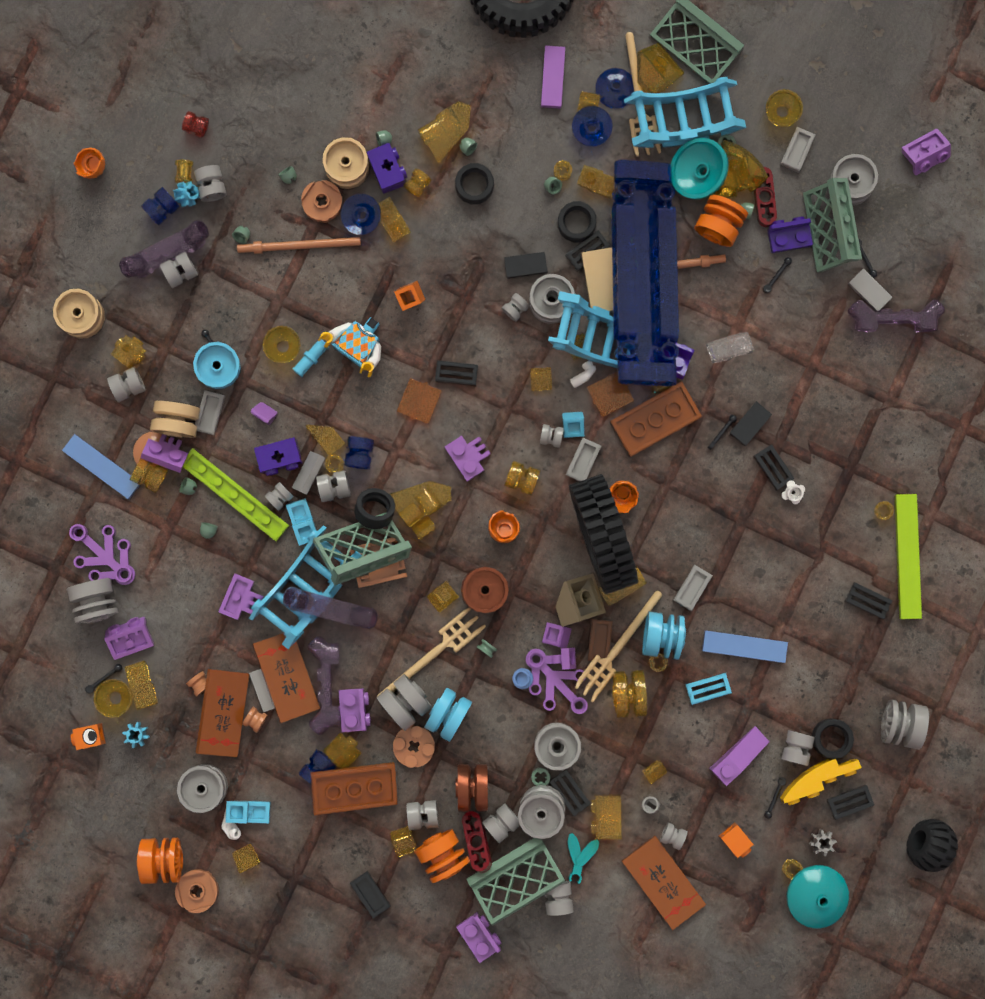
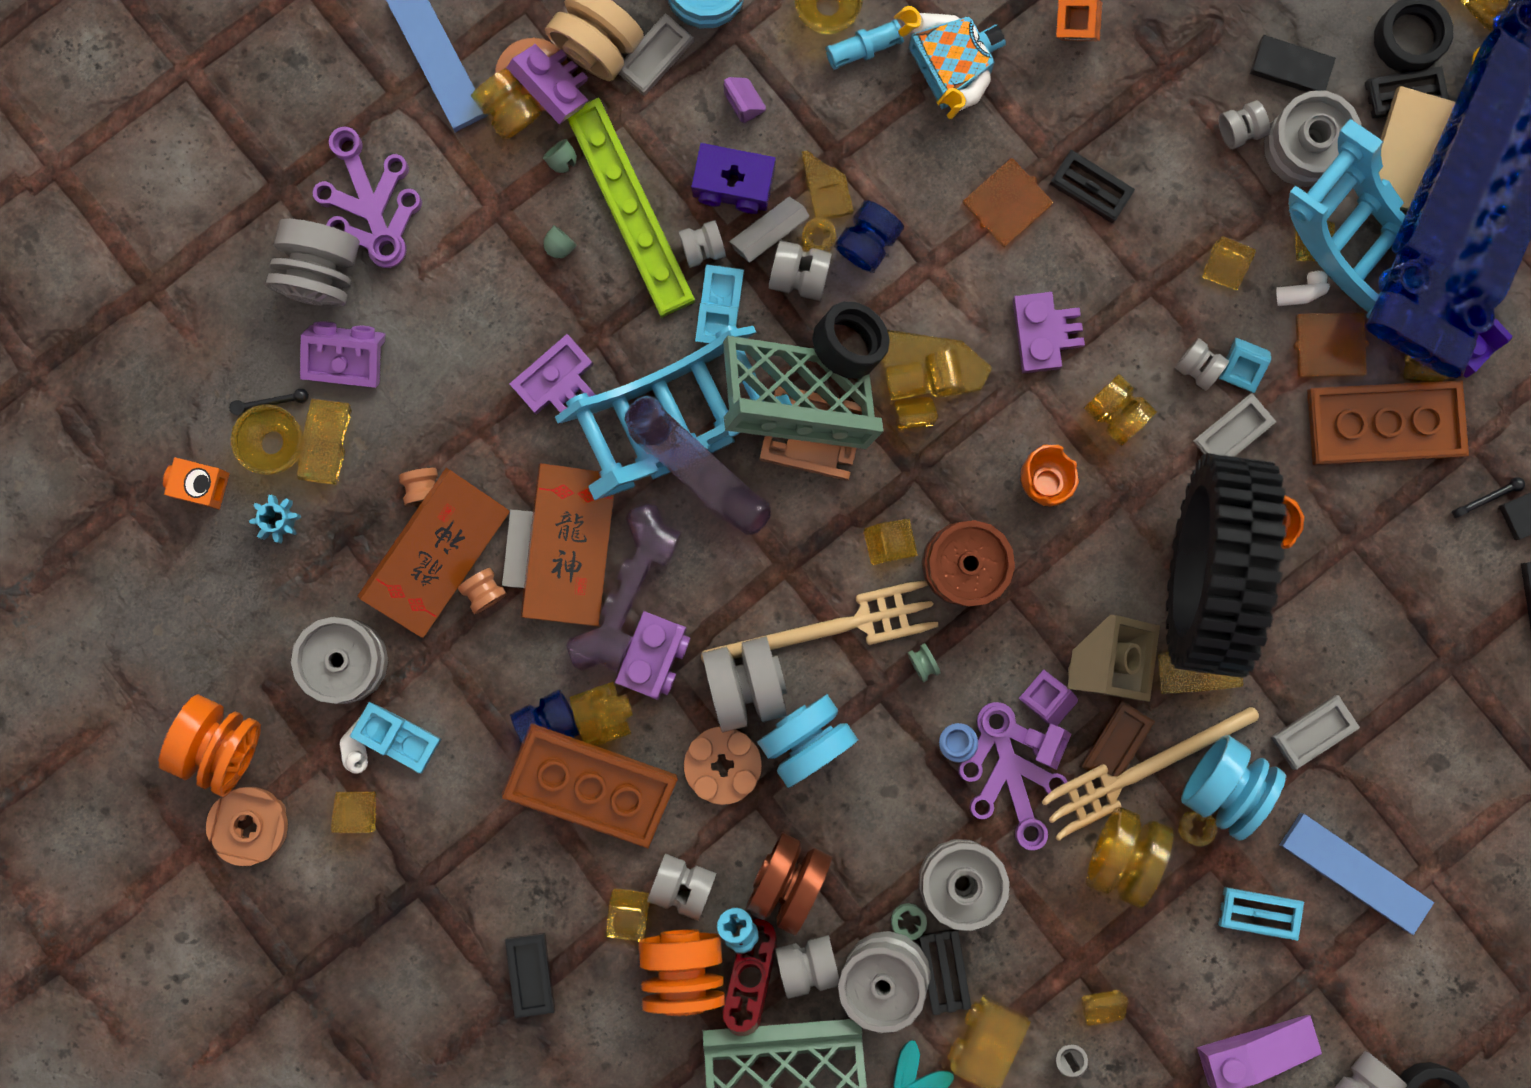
camera: 25 degrees right, 0 degrees up
(453, 822) = (727, 927): none -> medium azure bush

